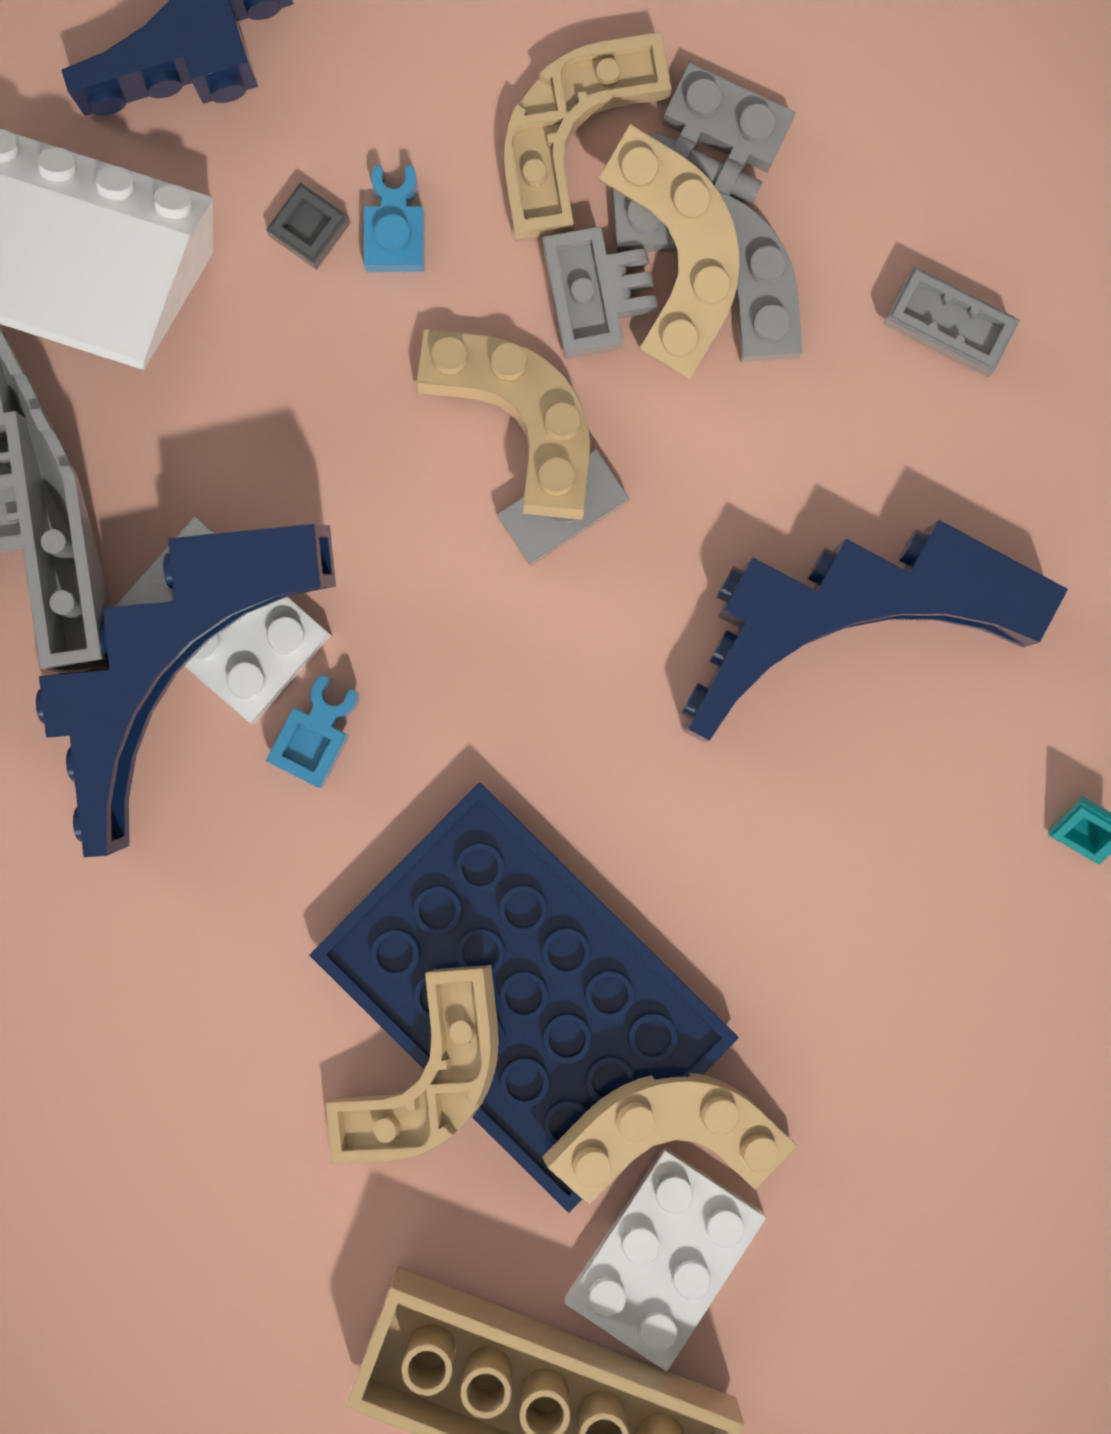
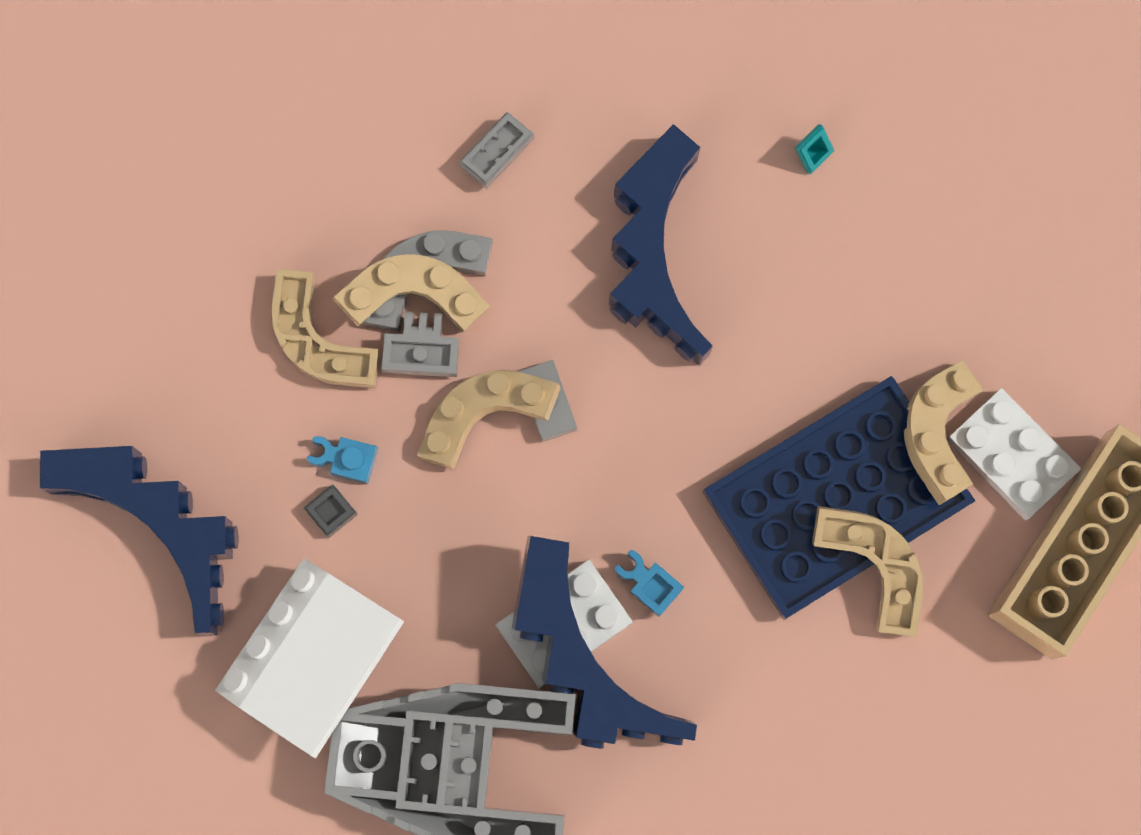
camera: 75 degrees left, 10 degrees down
(729, 120) = (339, 244): light grey plate -> none

